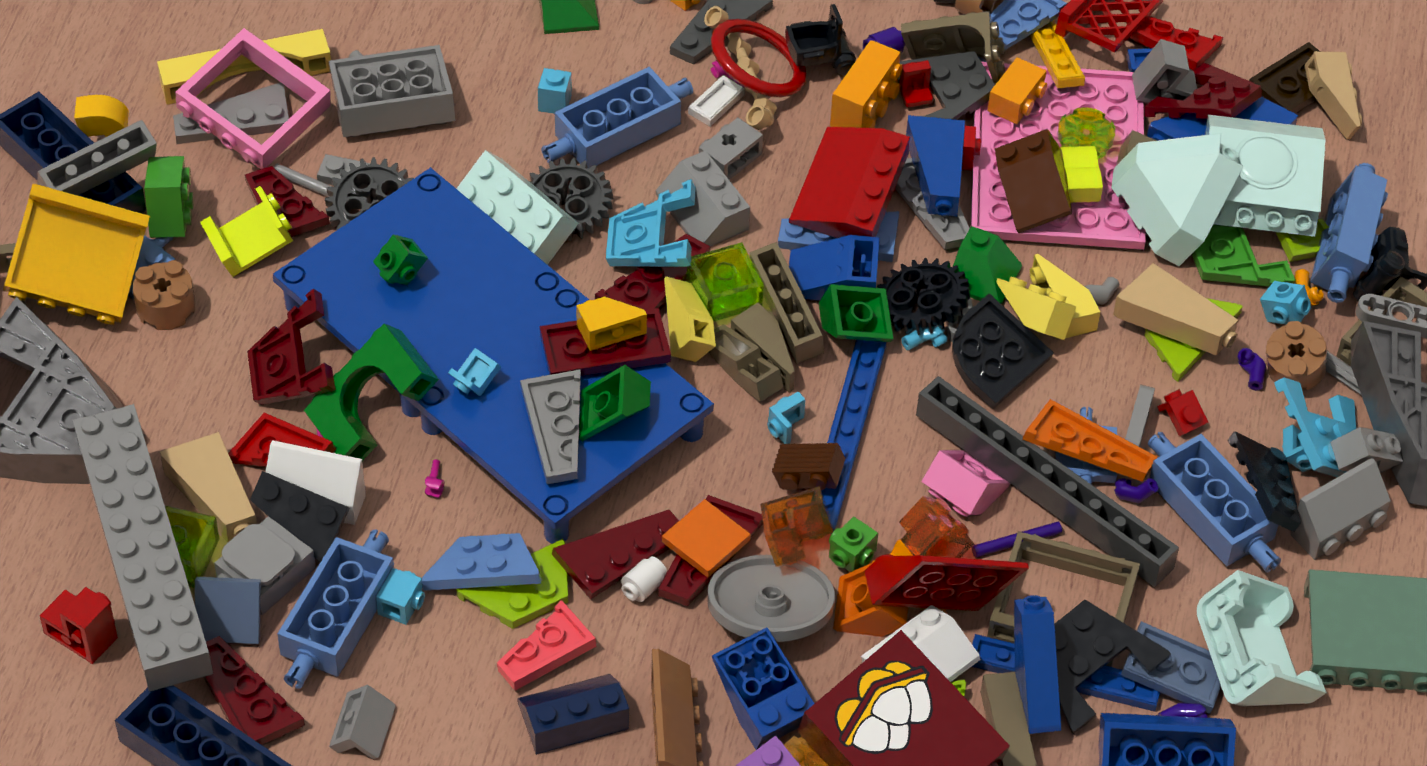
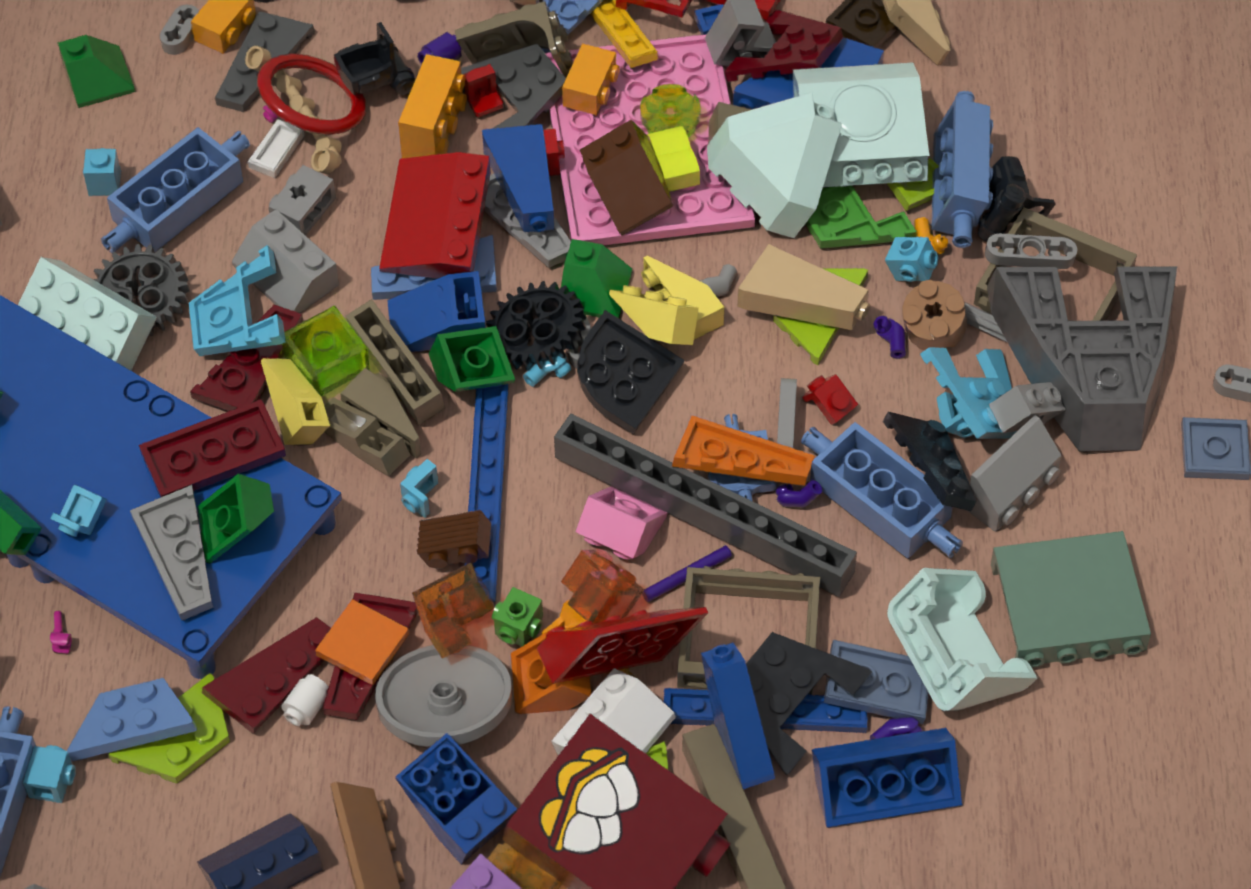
camera: 10 degrees left, 5 degrees up
(547, 648) = (220, 797): coral wing -> none
(609, 322) = (211, 427): yellow slope -> none

